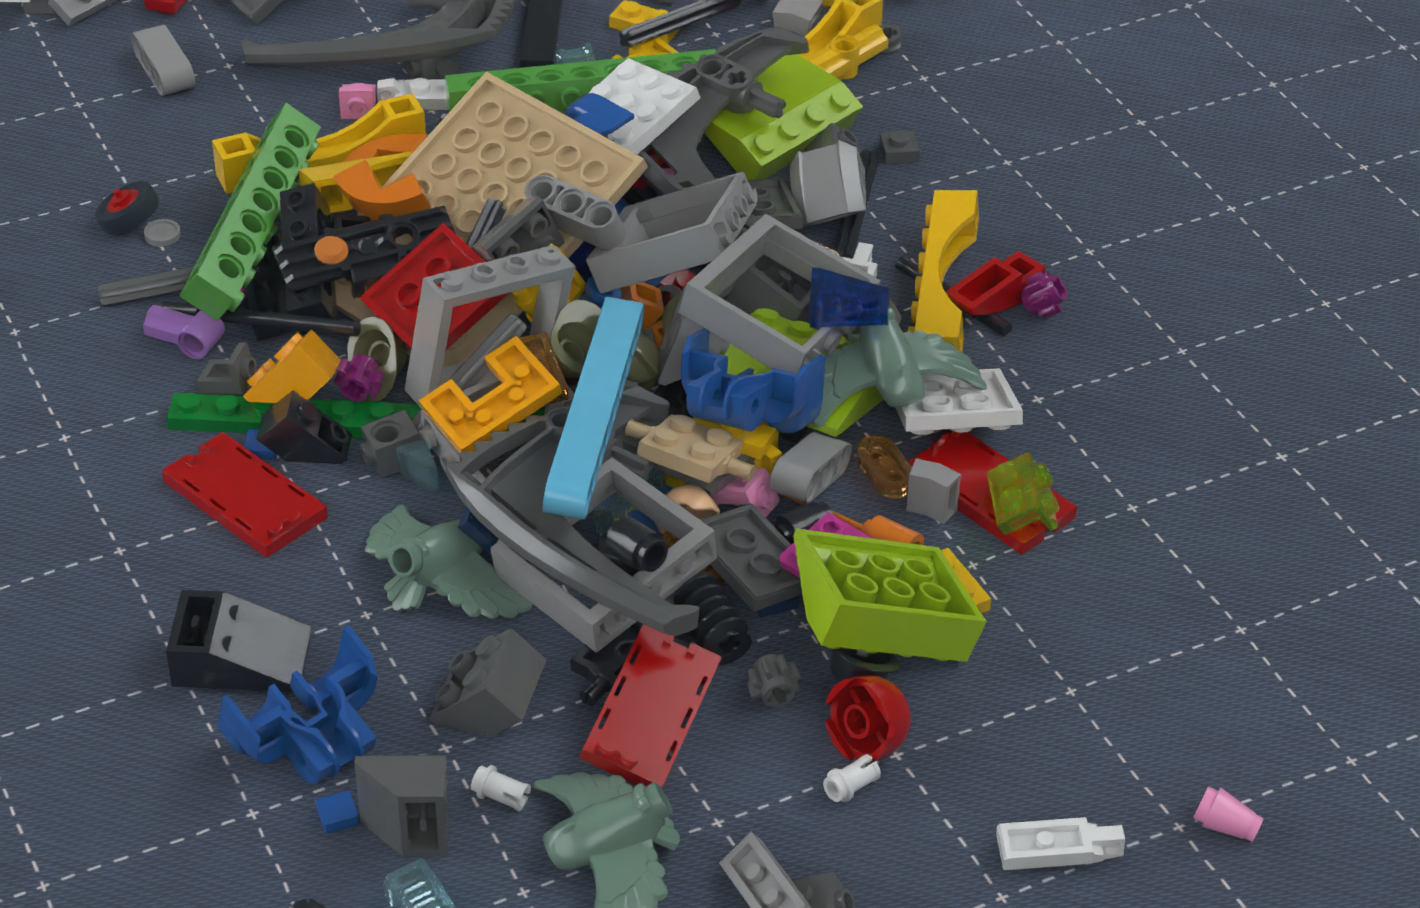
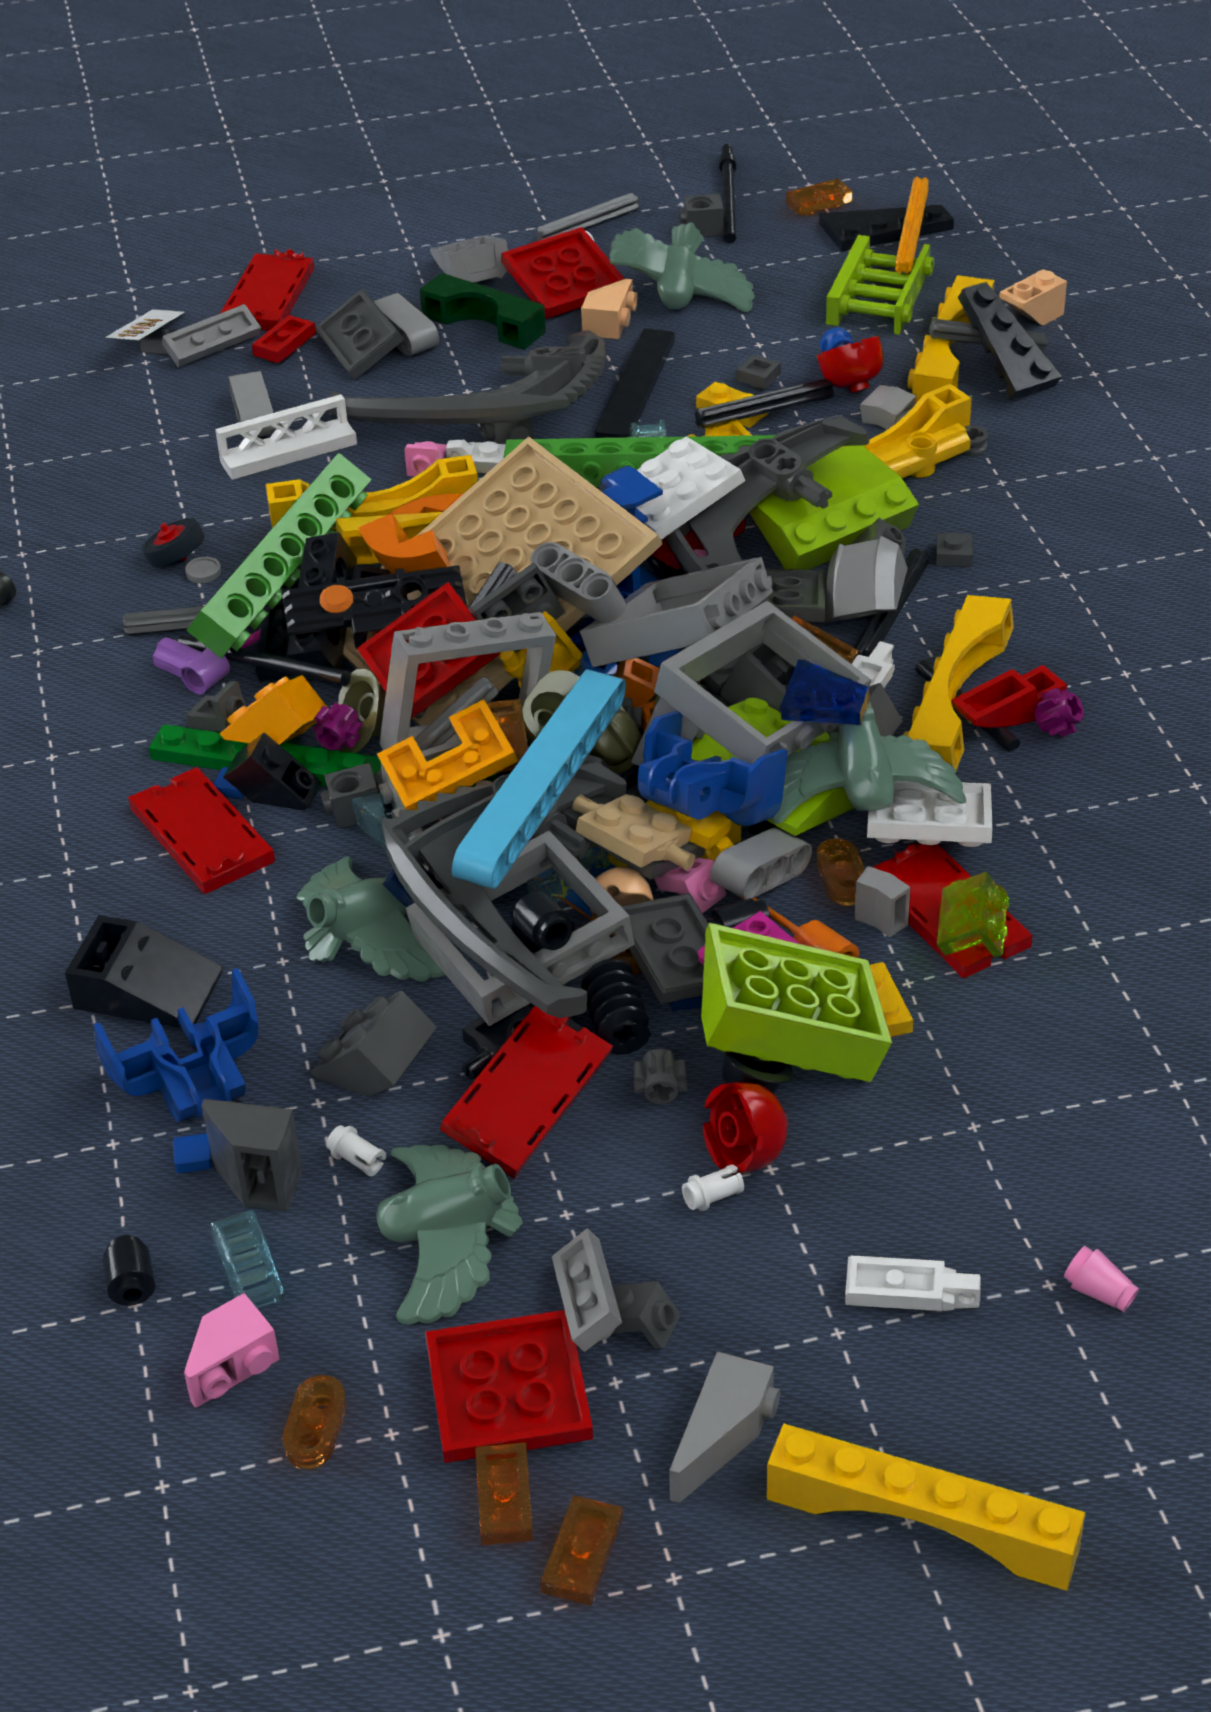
camera: 15 degrees right, 0 degrees up
(208, 98) = (285, 444): none -> white fence

